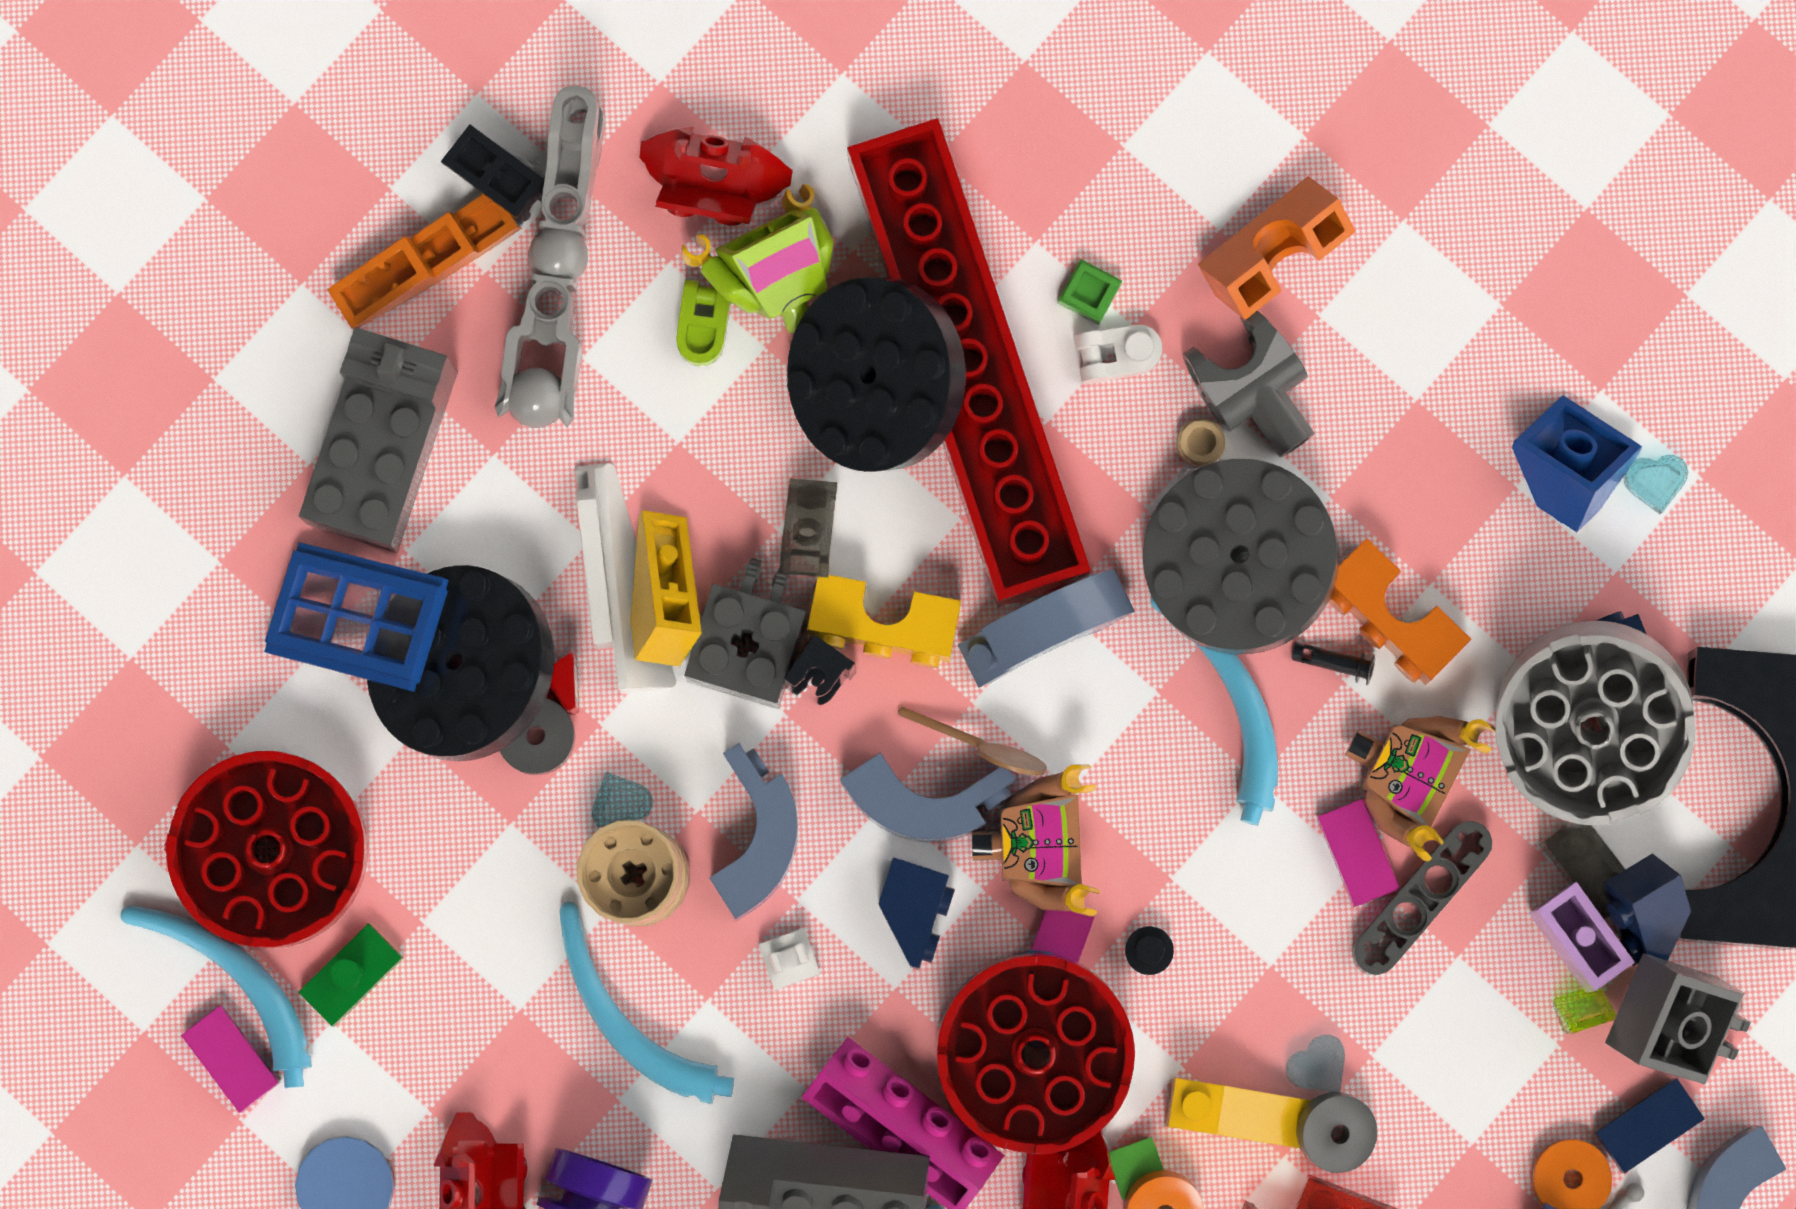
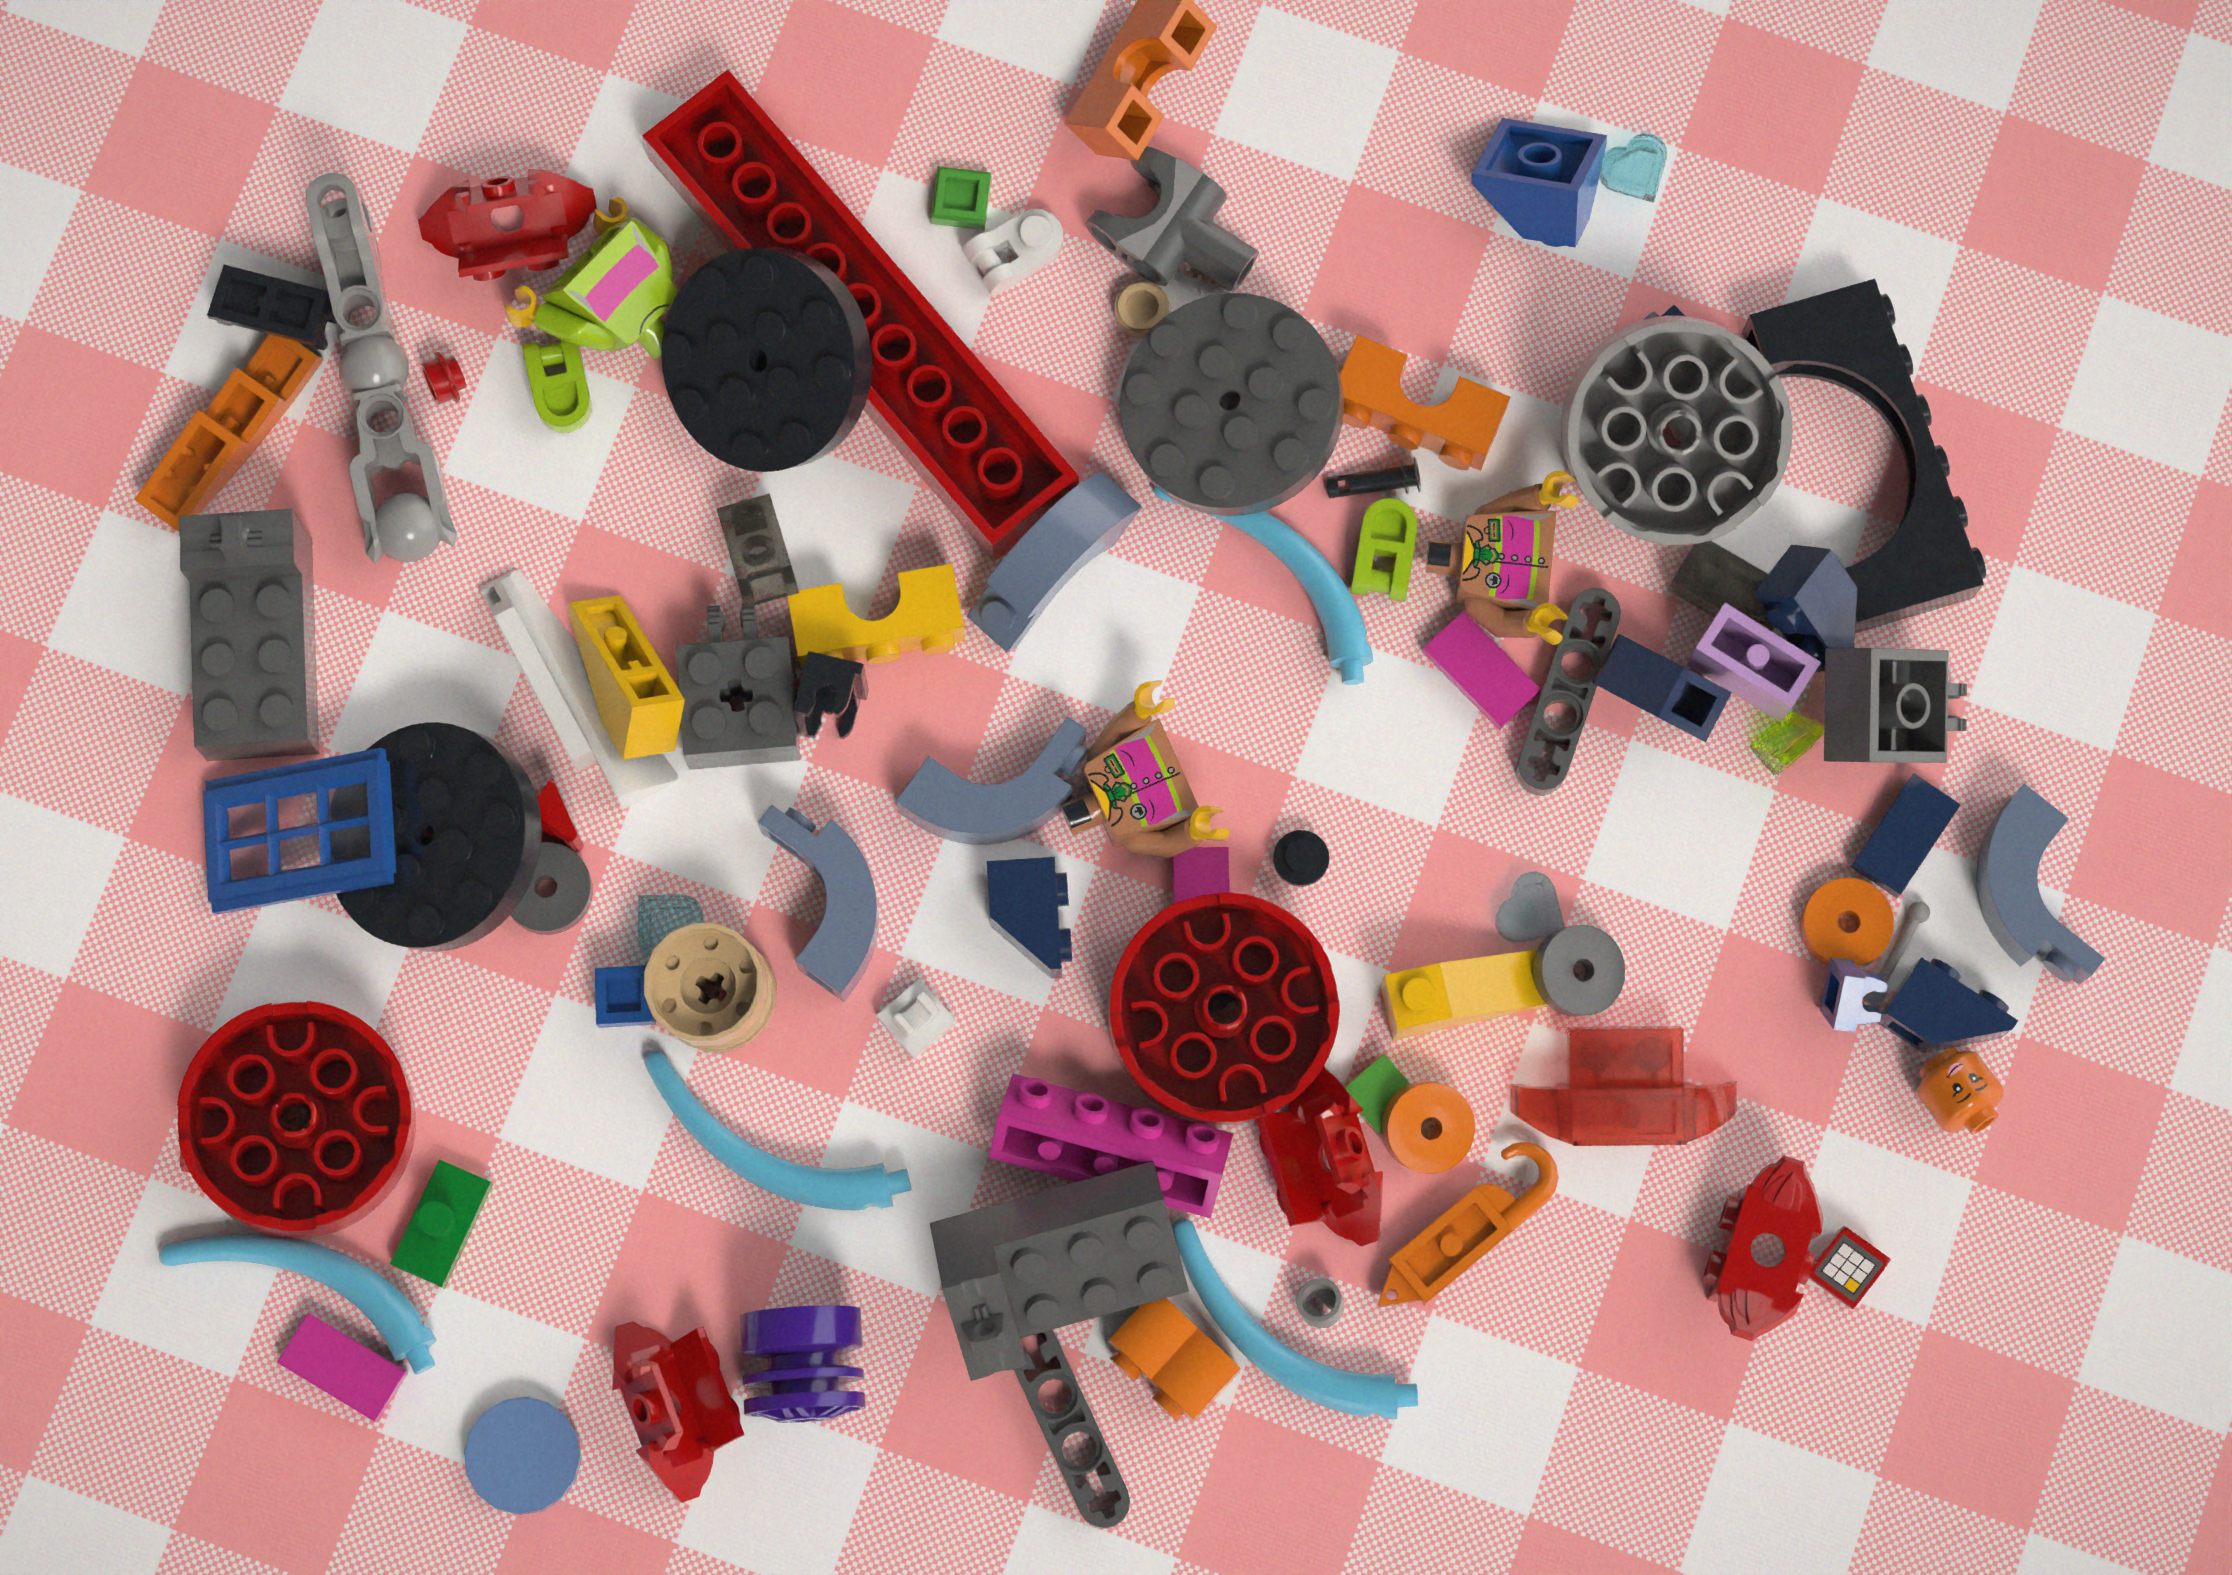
camera: 25 degrees left, 5 degrees down
(560, 850) = (621, 997): none -> blue tile
(612, 283) = (443, 378): none -> red plate
(998, 754) = (1055, 711): medium nougat piece -> none
(1327, 708) = (1390, 532): none -> lime plate
(1498, 930) = (1662, 687): none -> dark blue slope

